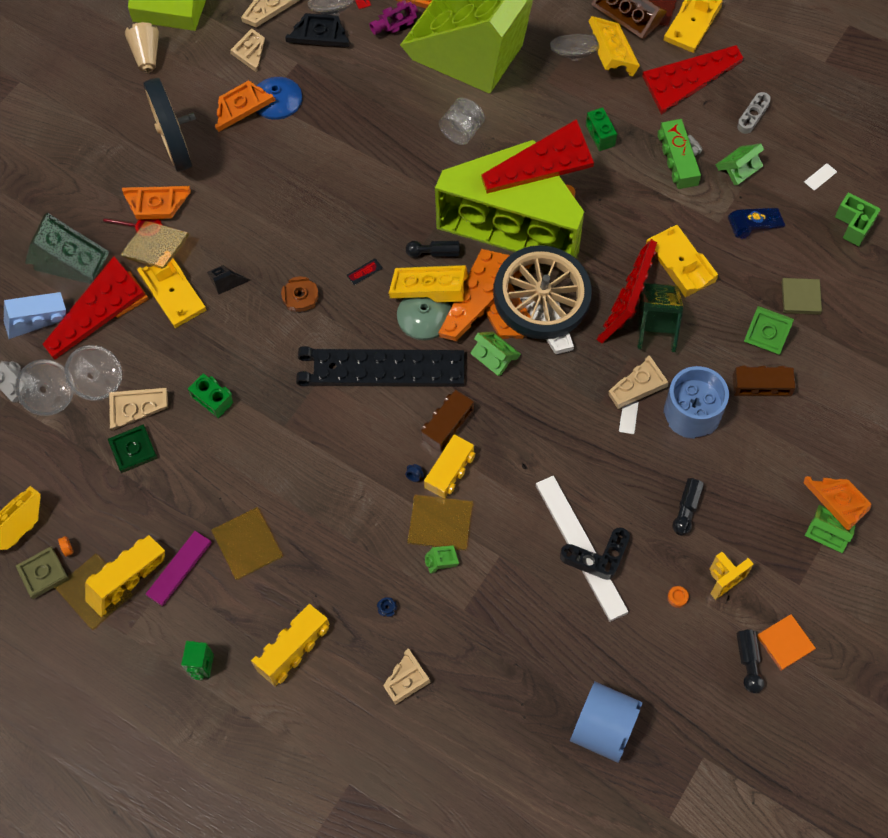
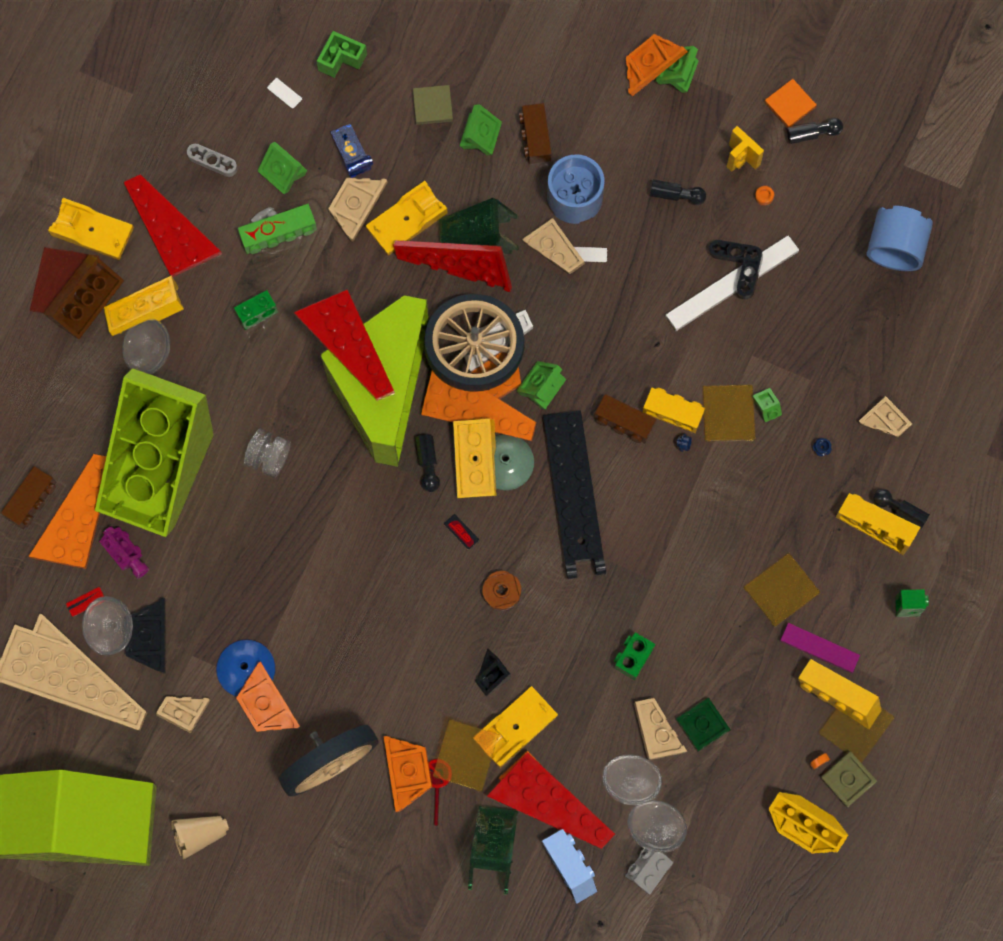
camera: 100 degrees left, 10 degrees up
(302, 676) = (902, 509): none -> black piece
(700, 218) = (355, 203): none -> tan wing

